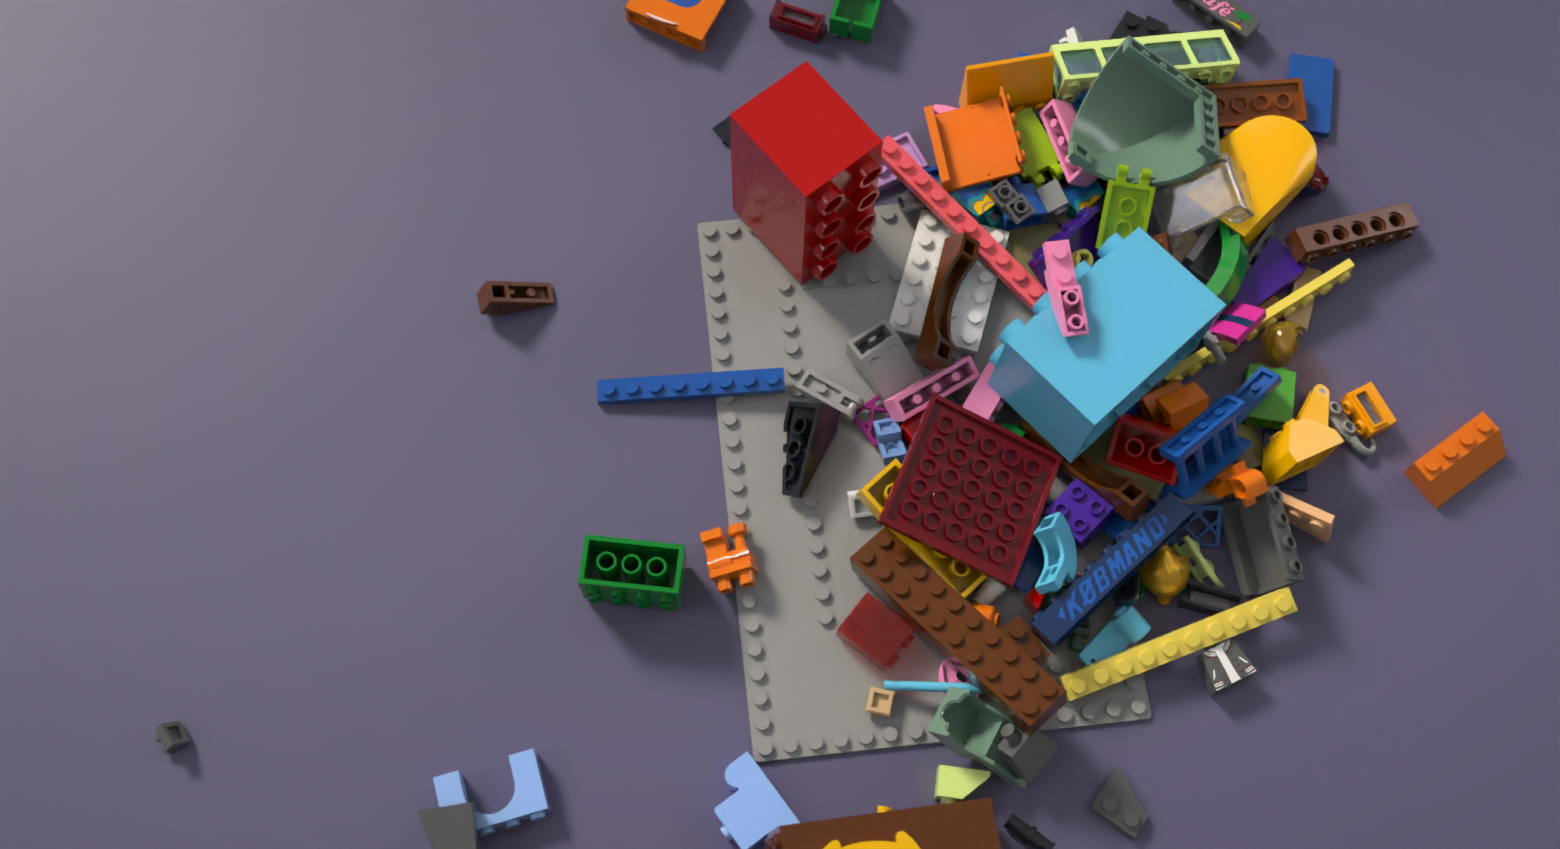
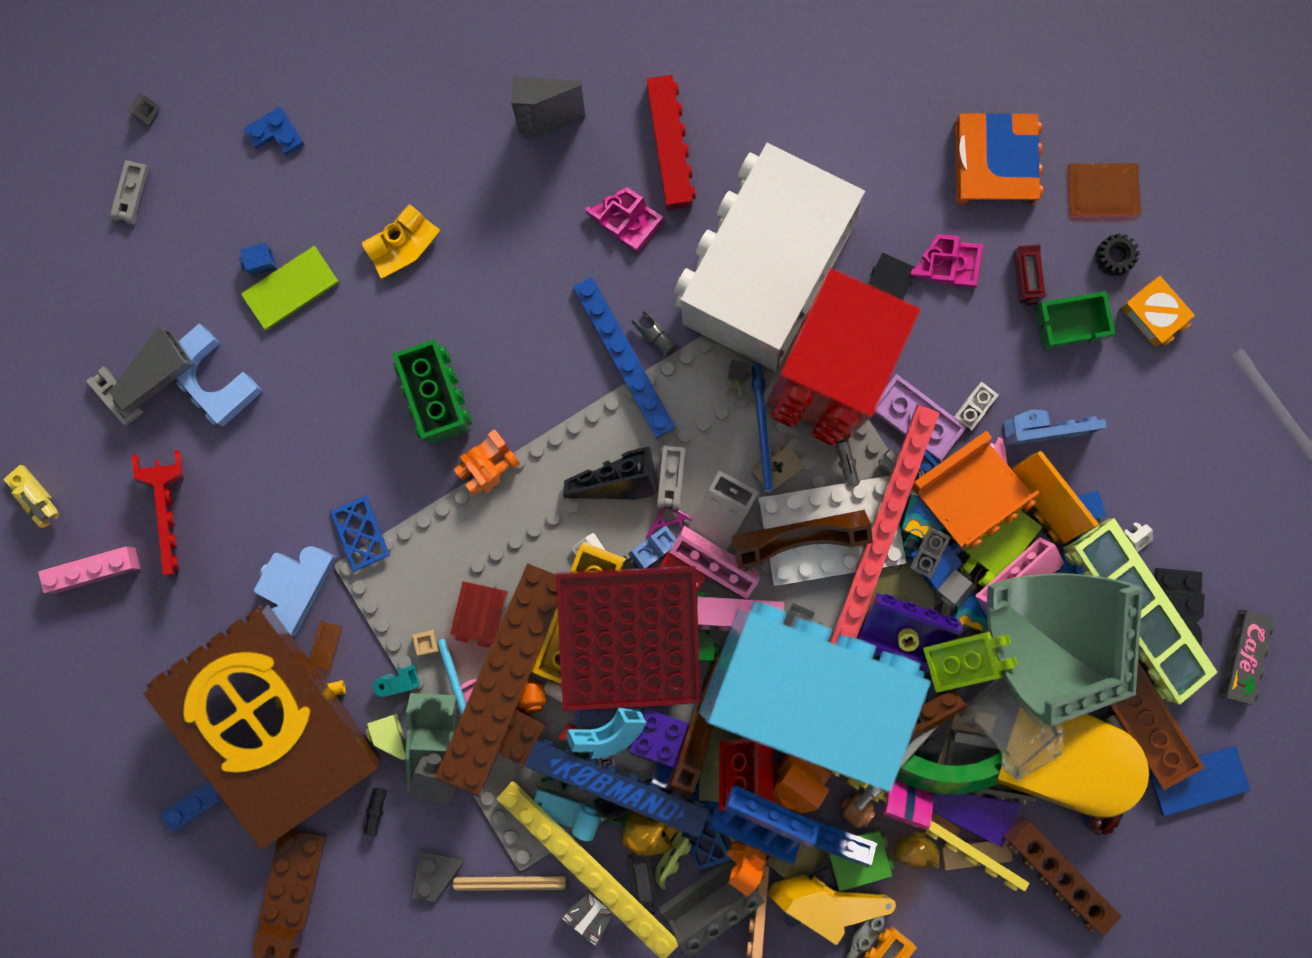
camera: 65 degrees right, 15 degrees up
(249, 792) = (129, 192): none -> light grey plate
(272, 609) = (276, 126): none -> blue plate
(398, 690) = (257, 259): none -> blue brick
(411, 334) = (546, 104): none -> dark grey slope
(446, 673) = (290, 288): none -> lime tile
(471, 554) = (414, 238): none -> yellow panel
(509, 253) = (669, 142): none -> red brick
(512, 297) = (632, 168): reddish brown slope -> none
(558, 324) = (627, 218): none -> dark pink slope
(672, 206) = (768, 255): none -> white brick
(683, 350) = (656, 336): none -> dark grey piece
(723, 700) = (349, 550): none -> blue window
(752, 74) = (950, 262): none -> dark pink slope
(760, 291) = (737, 373): none -> black piece
(784, 280) = (758, 387): none -> blue bar
(829, 803) = (325, 645): none -> clear orange tile
(870, 287) = (790, 466): none -> dark tan brick
(892, 116) = (976, 405): none -> white slope
(893, 237) = (847, 463): none -> flat silver pin
(908, 750) = (391, 684): none -> teal leg
(937, 74) = (1023, 430): none -> medium blue plate
(1063, 289) = (823, 642): bright pink slope -> none
(1159, 733) = (509, 883): none -> tan axle
(1221, 377) = (854, 816): none -> nougat head

